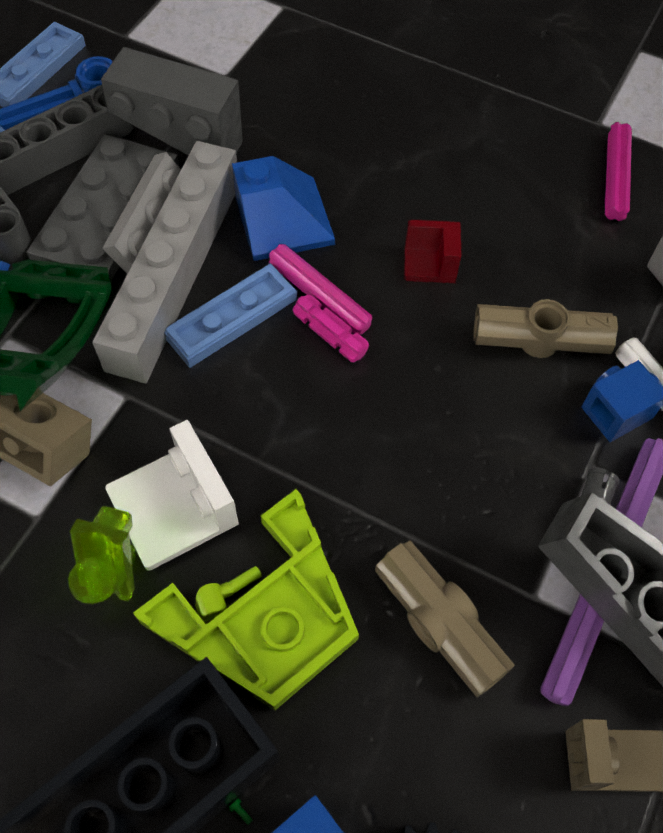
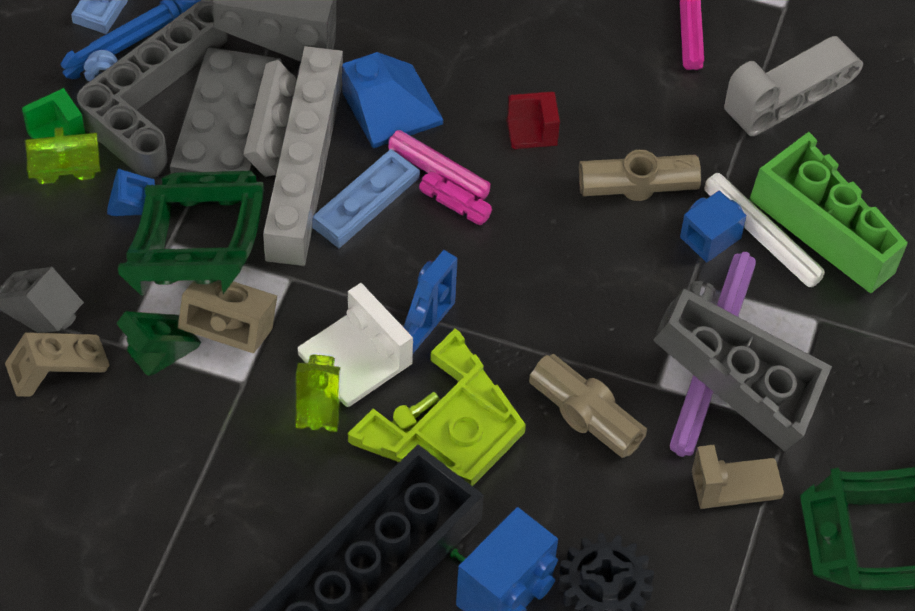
camera: 10 degrees left, 5 degrees down
(272, 449) = (432, 297): none -> blue wing

